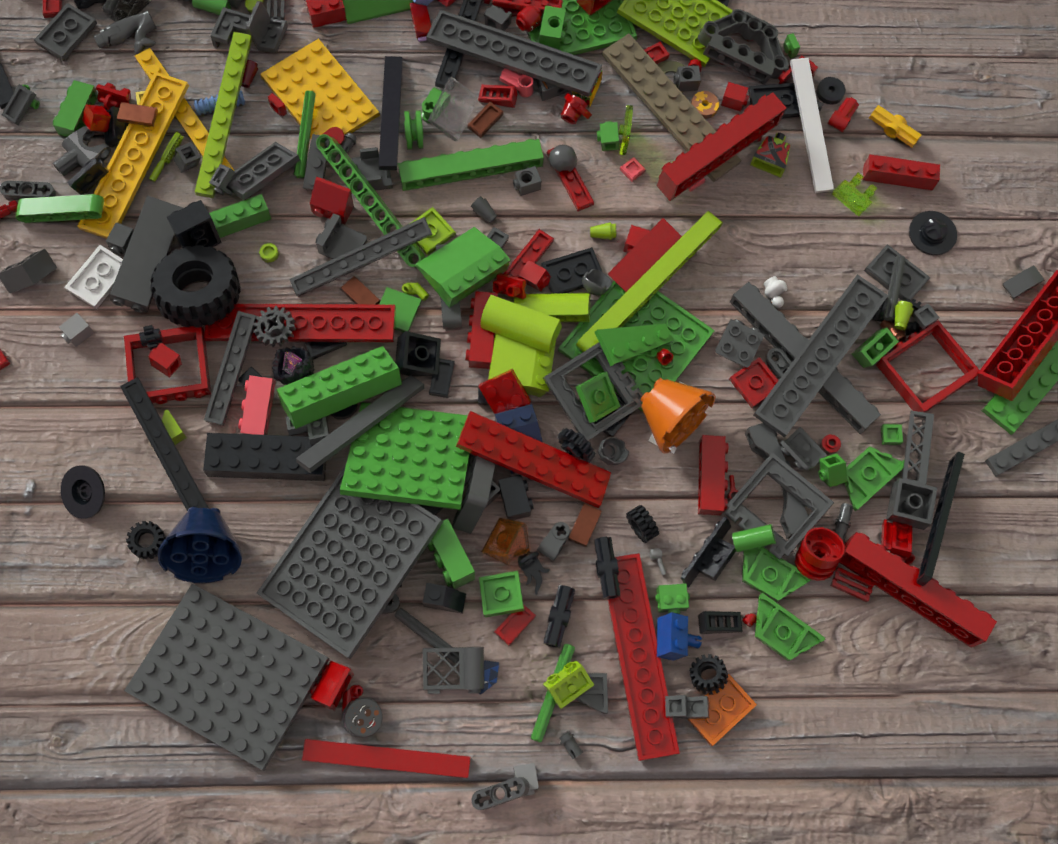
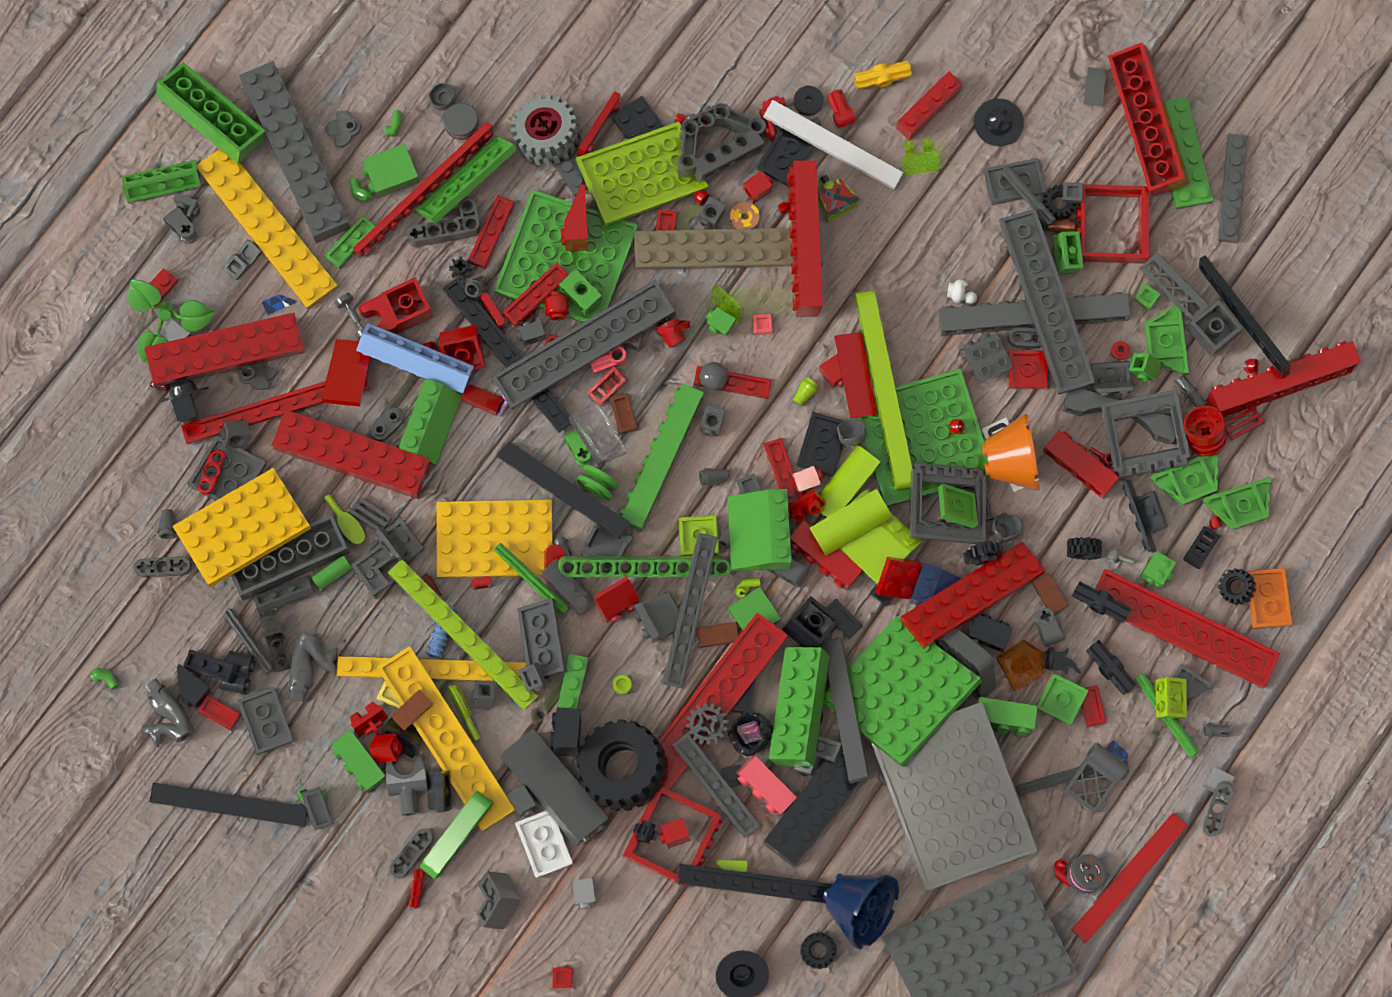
camera: 50 degrees left, 5 degrees up
(332, 685) = (1046, 879): red slope -> none
(444, 598) = (1033, 747): black slope -> none
(629, 342) = (928, 447): bright green wing -> none
(674, 637) = (1190, 591): blue brick -> none
(687, 707) = (1250, 621): dark grey slope -> none
(754, 538) = (1157, 471): bright green brick -> none
(791, 45) = (743, 101): bright green plate -> none
(897, 538) = (1233, 361): red plate -> none
(903, 312) = (1058, 209): lime cone -> none

